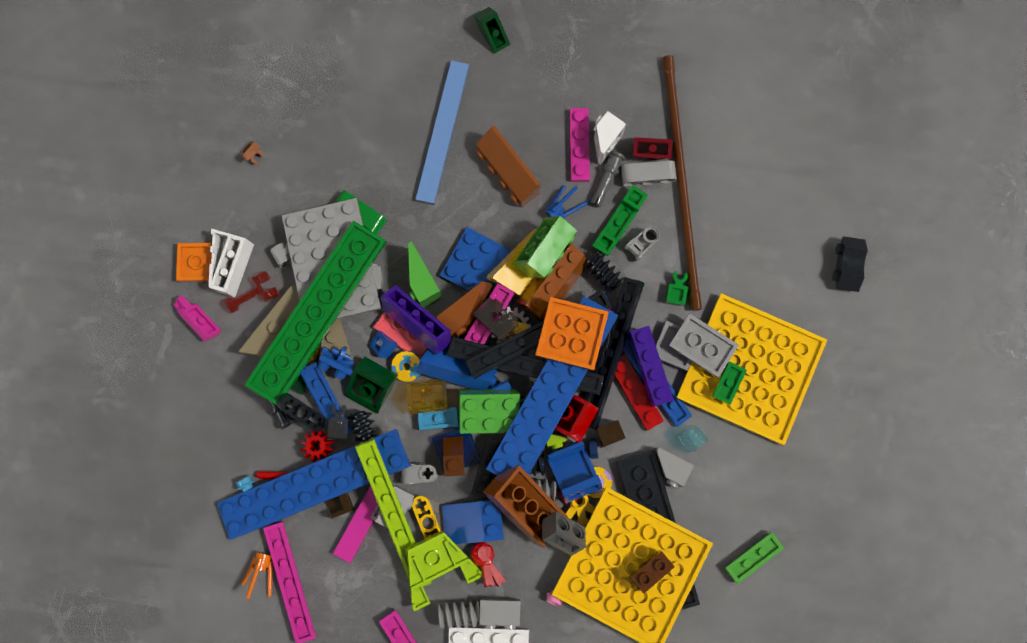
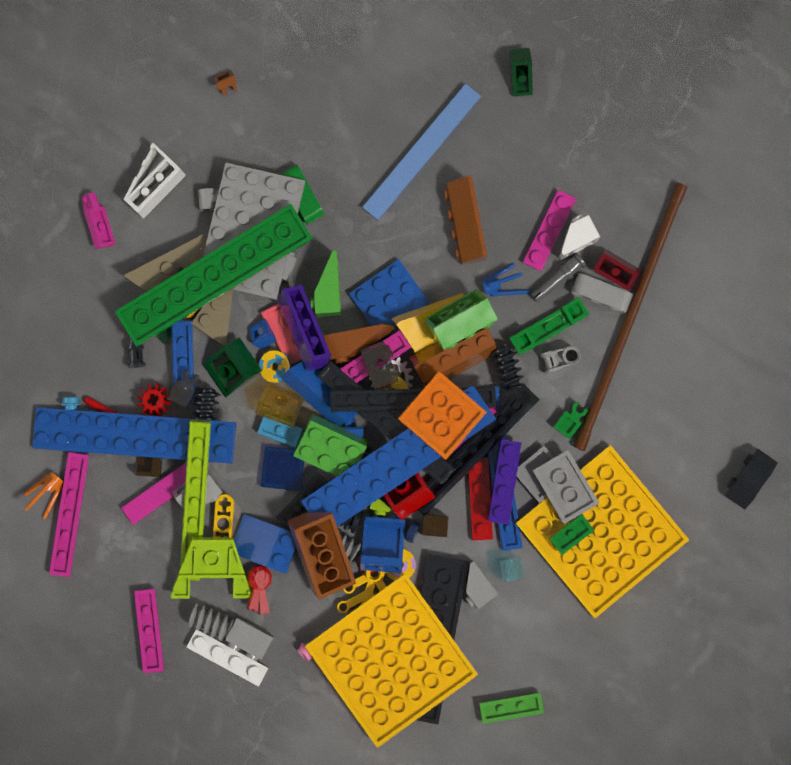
camera: 30 degrees right, 5 degrees up
(193, 262) = (120, 165): orange plate -> none
(233, 304) = (139, 224): clear red bar -> none
(298, 405) = (148, 358): black beam -> none
(336, 359) = (212, 329): blue hips -> none
(416, 475) = (234, 473): light grey piece -> none
(453, 456) = (277, 474): reddish brown slope -> none
(563, 533) = (343, 596): dark grey brick -> none
(651, 571) = (406, 670): reddish brown brick -> none

